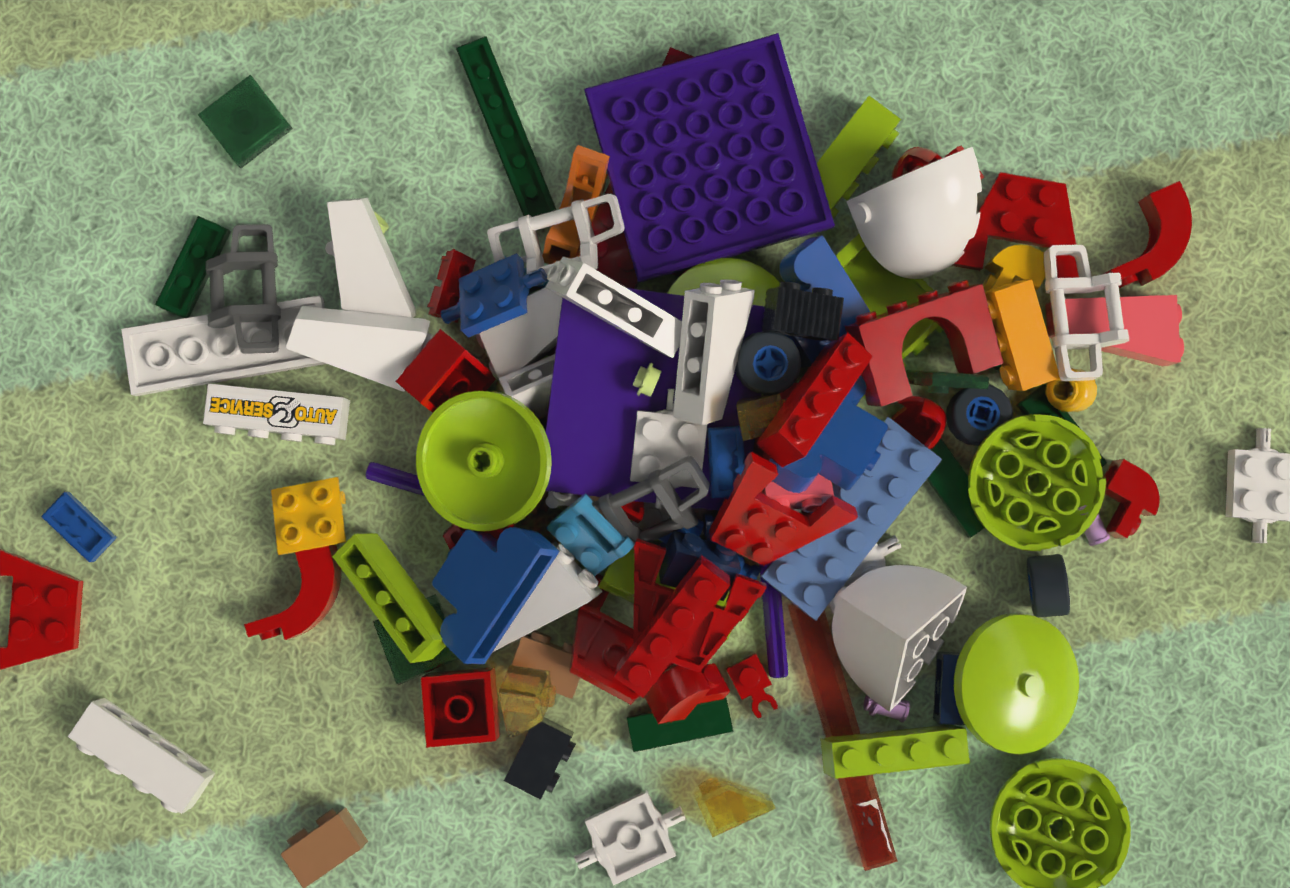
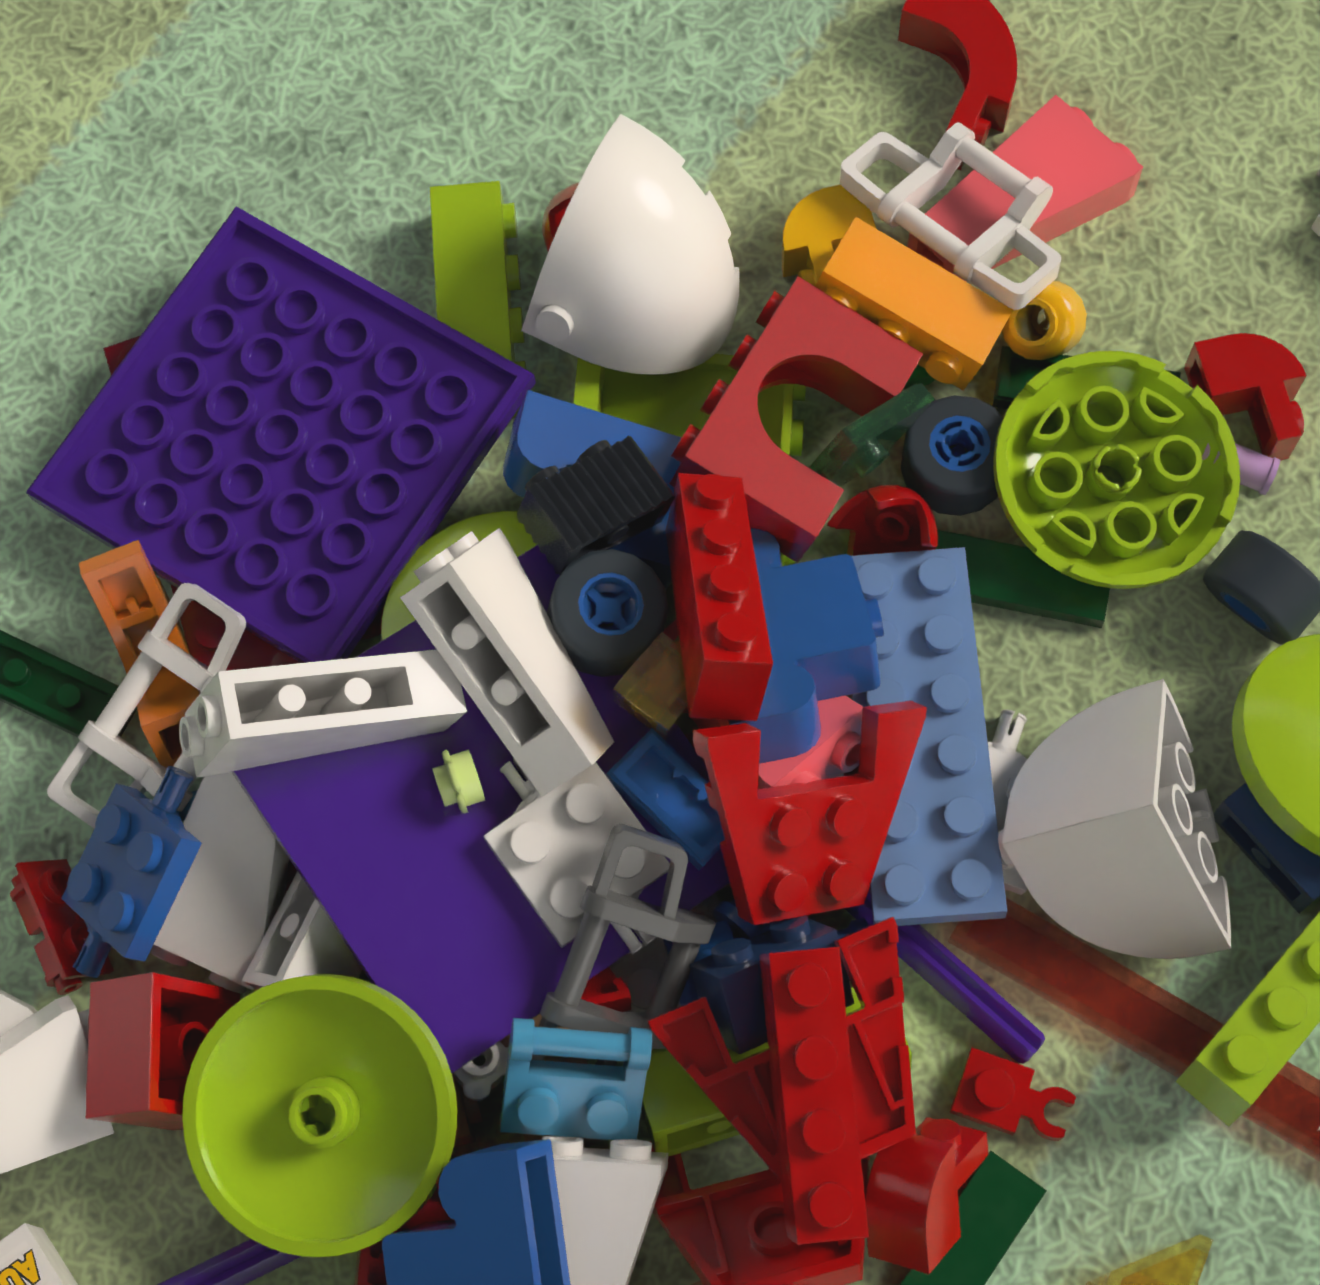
camera: 40 degrees left, 15 degrees down
(899, 712) = (1245, 945): lavender pin -> none
(1023, 213) = (766, 167): red wing -> none

